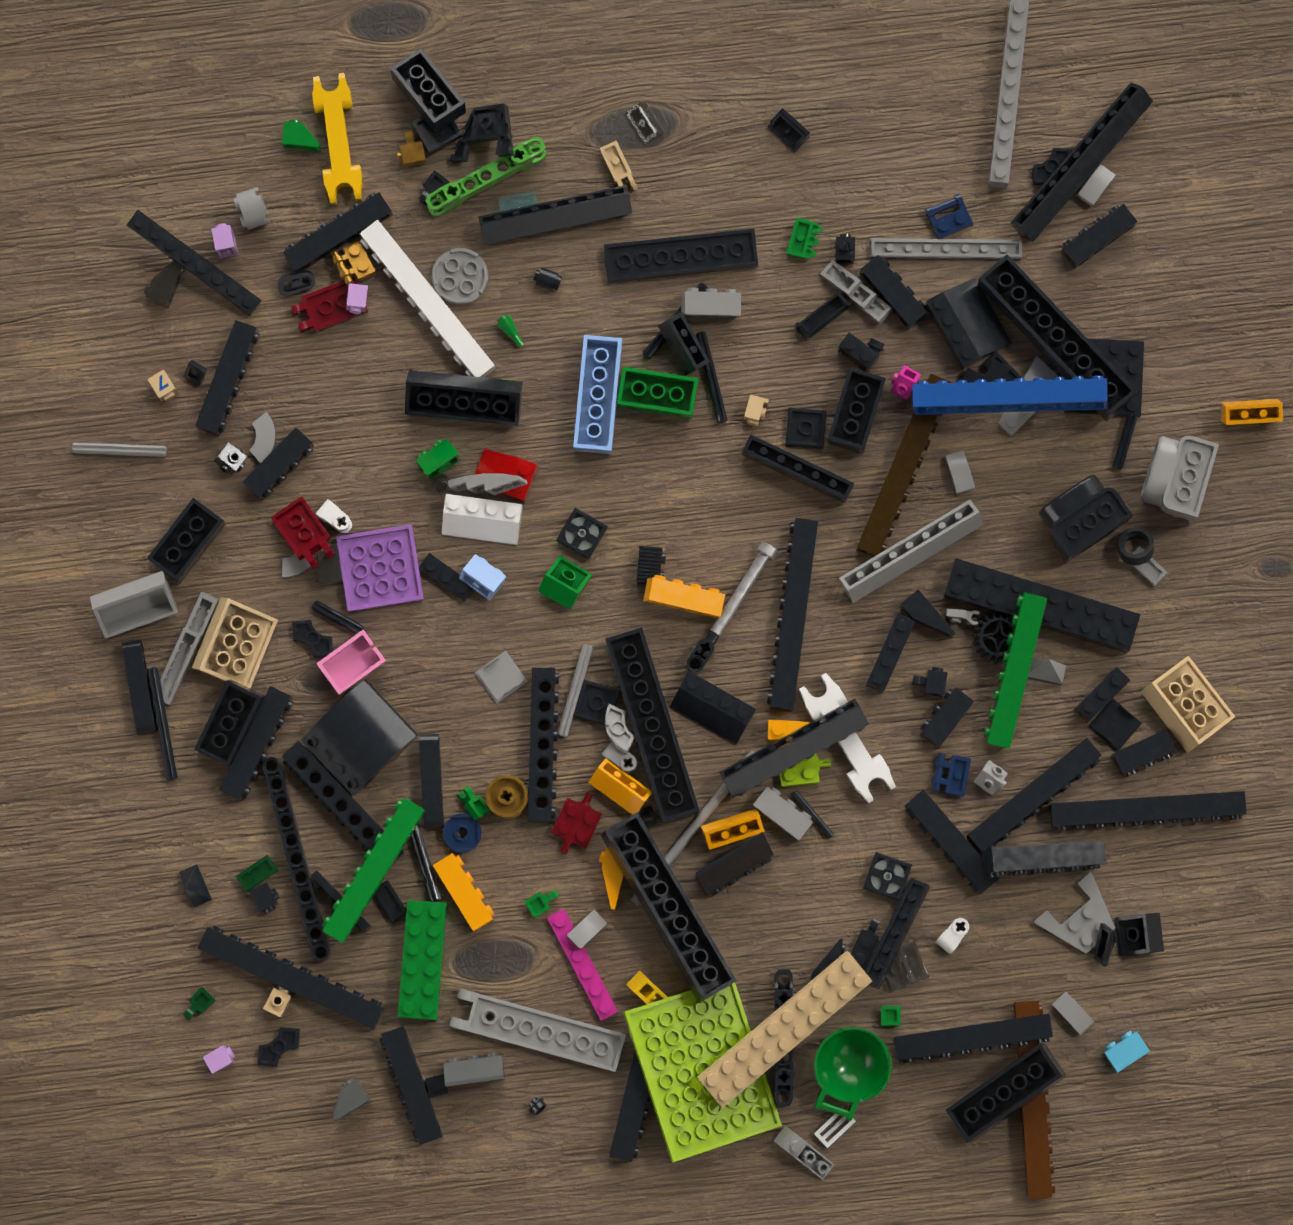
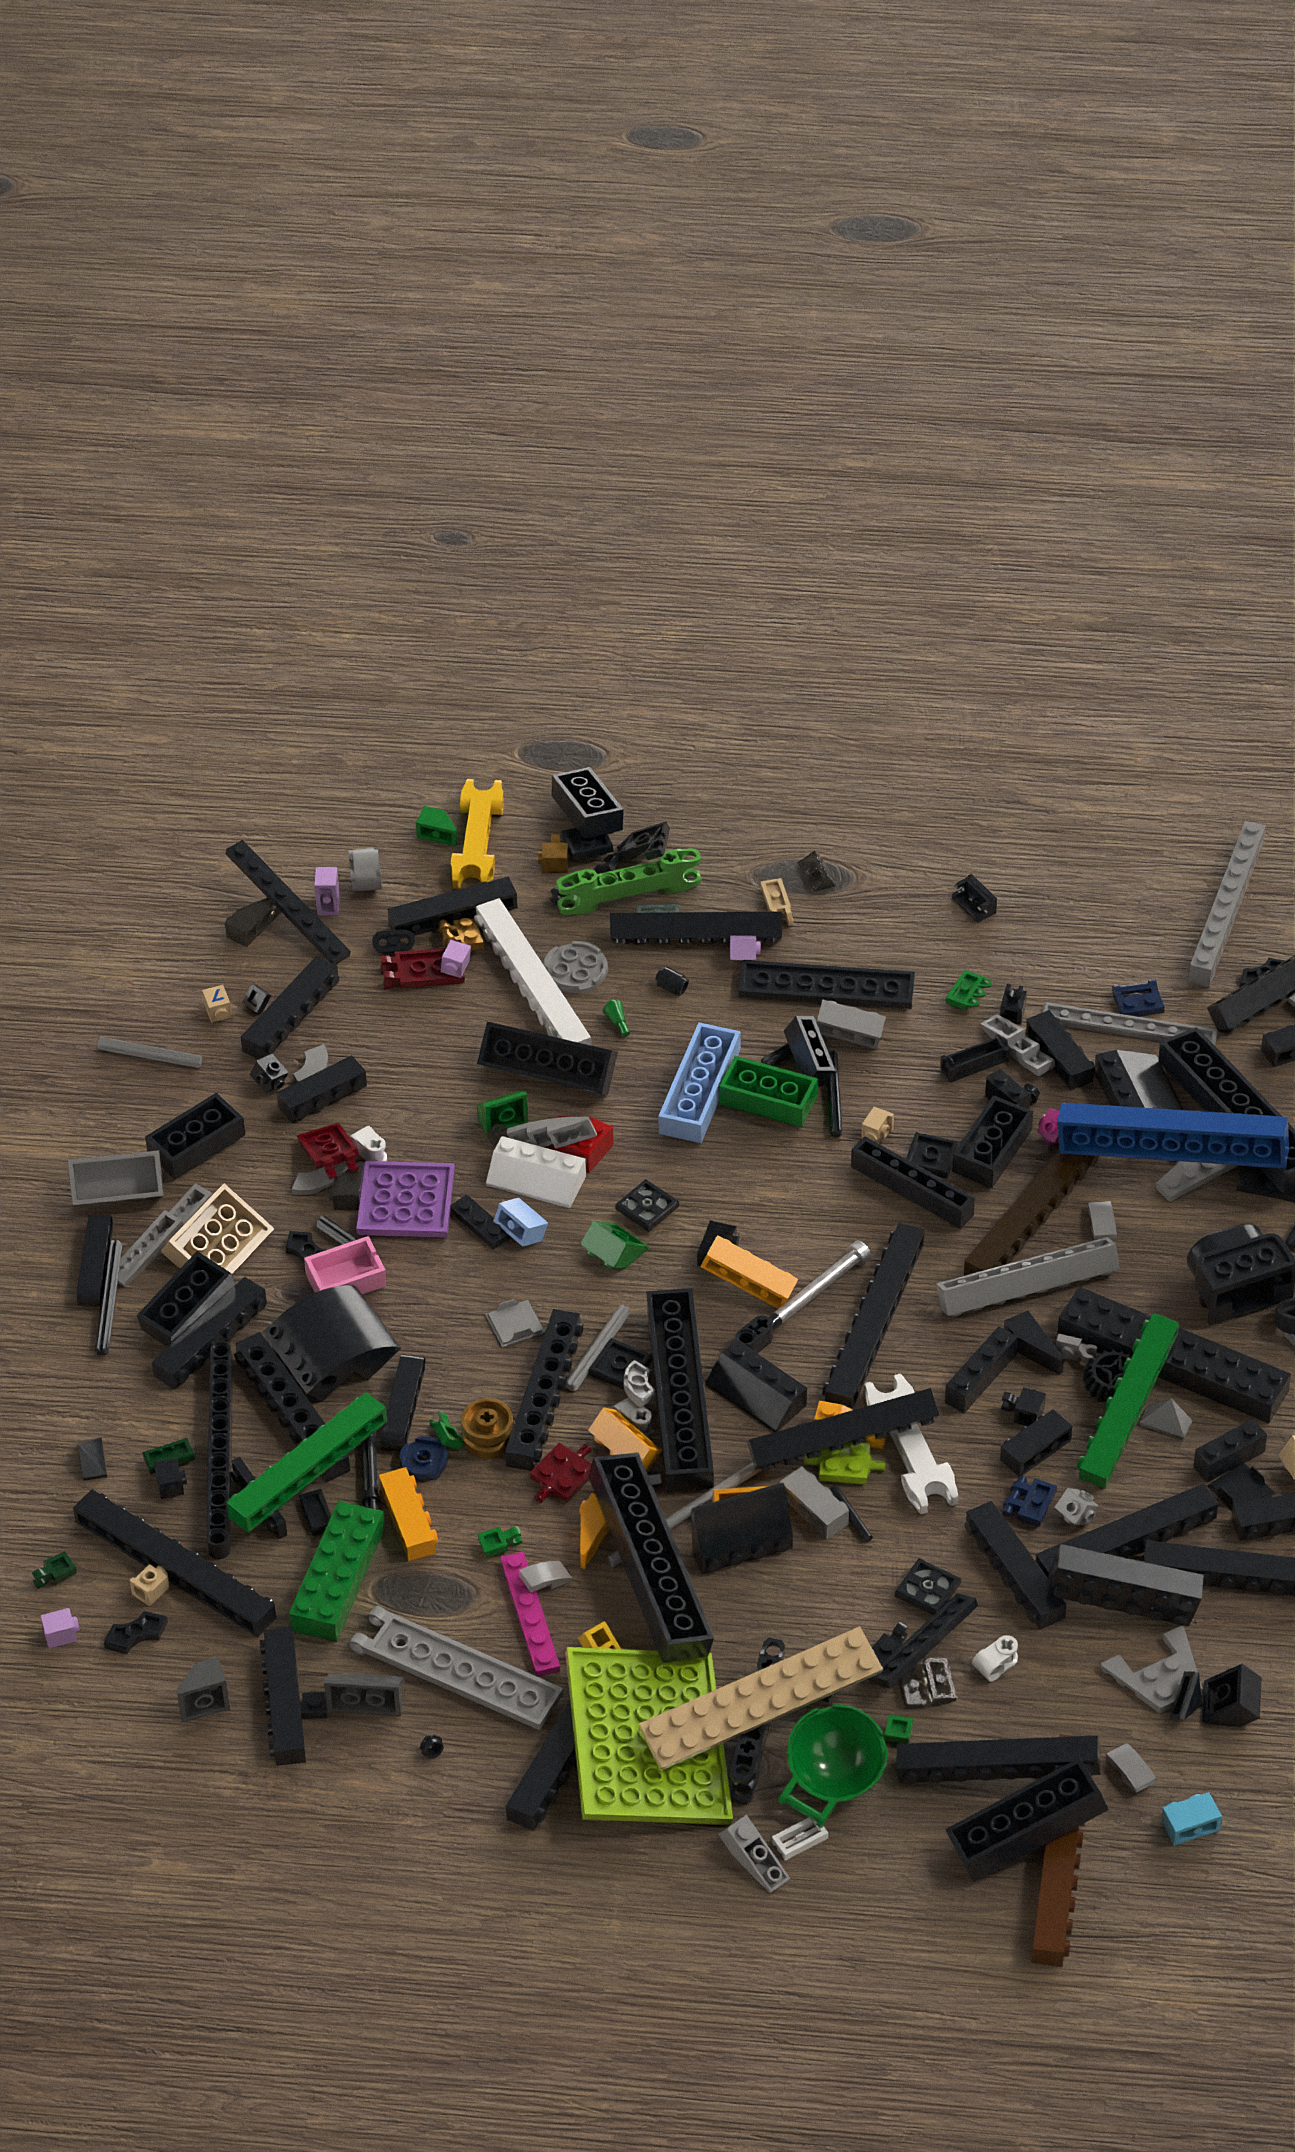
camera: 10 degrees right, 35 degrees down
(602, 232) = (744, 947): none -> lavender brick

